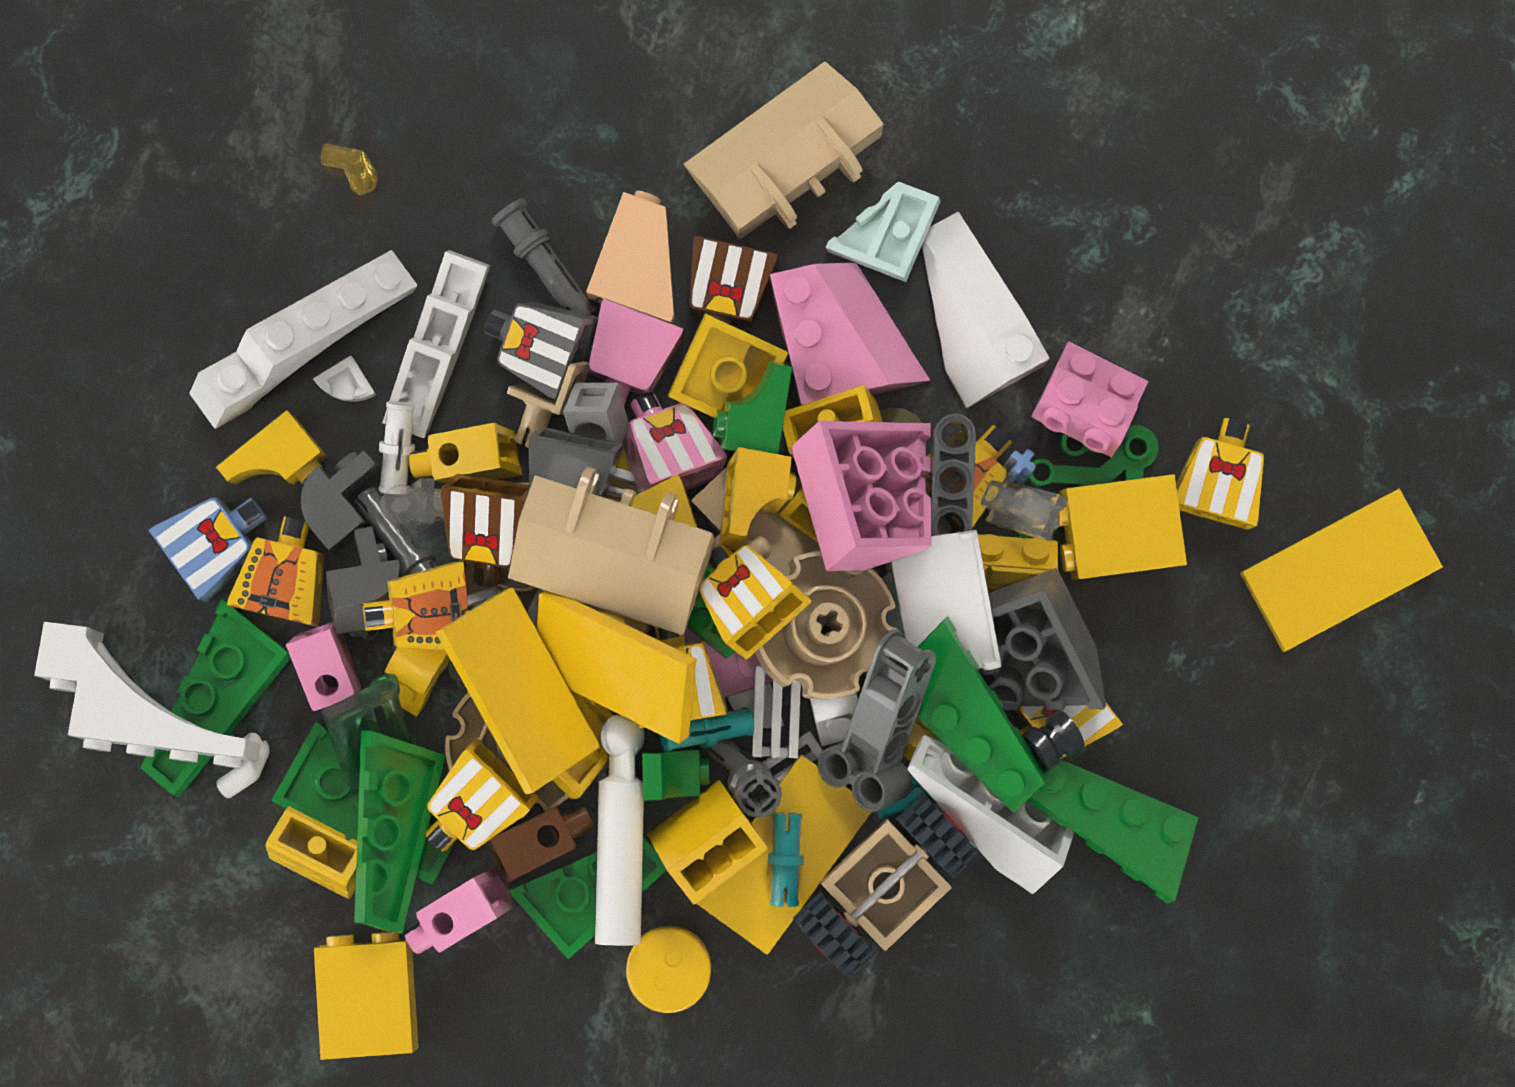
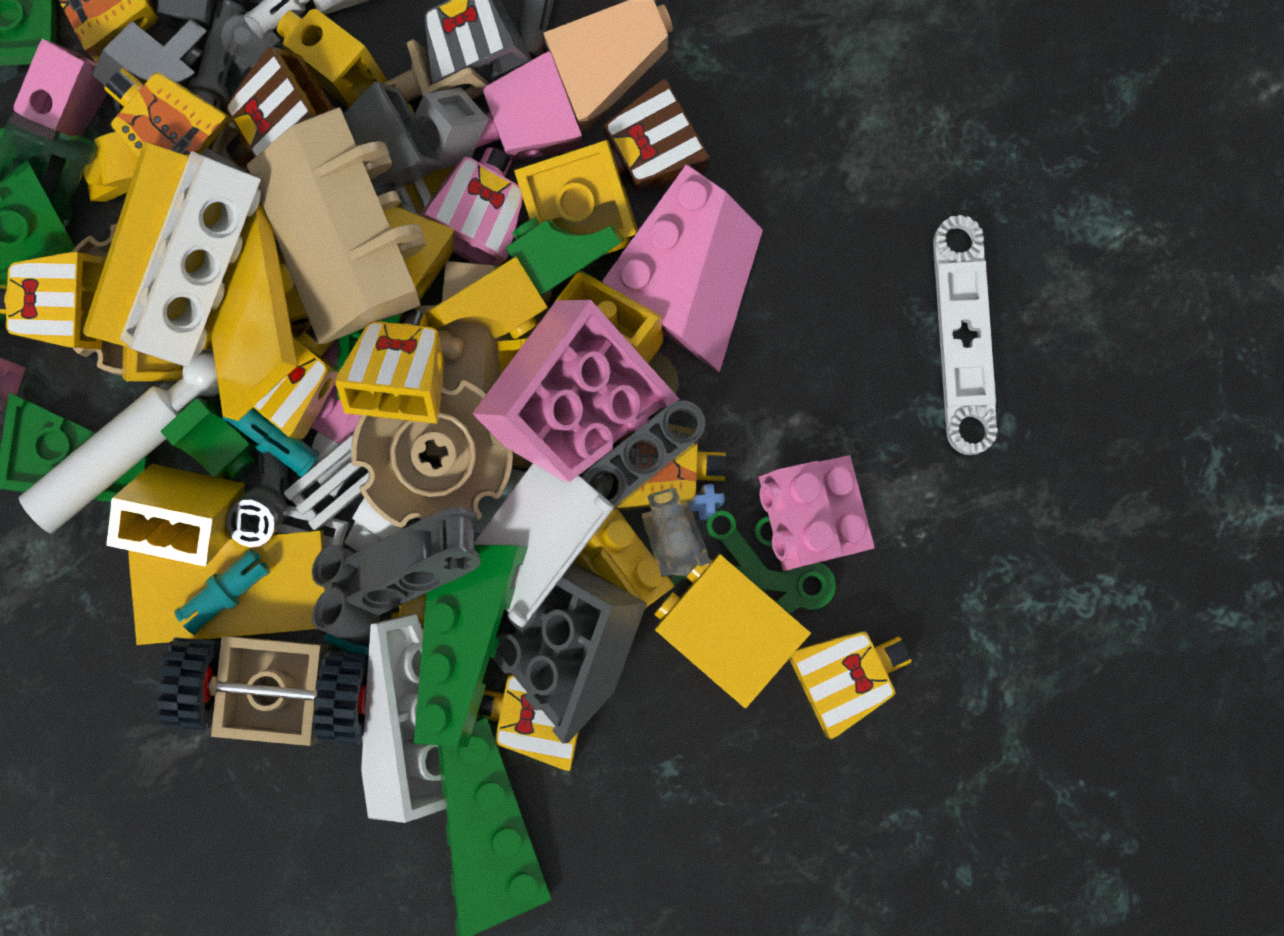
camera: 50 degrees right, 0 degrees up
(520, 851) = (50, 371): reddish brown torso -> none
(523, 663) = (183, 232): none -> white brick
(668, 969) = (57, 575): yellow head -> none
(786, 150) = (802, 95): tan piece -> none
(890, 232) = (811, 234): light aqua wing -> none
(978, 321) = (800, 369): white wedge -> none
(1054, 739) = (501, 724): black wheel -> none
(1080, 210) = (965, 371): none -> white piece
(1341, 570) = (859, 842): yellow tile -> none

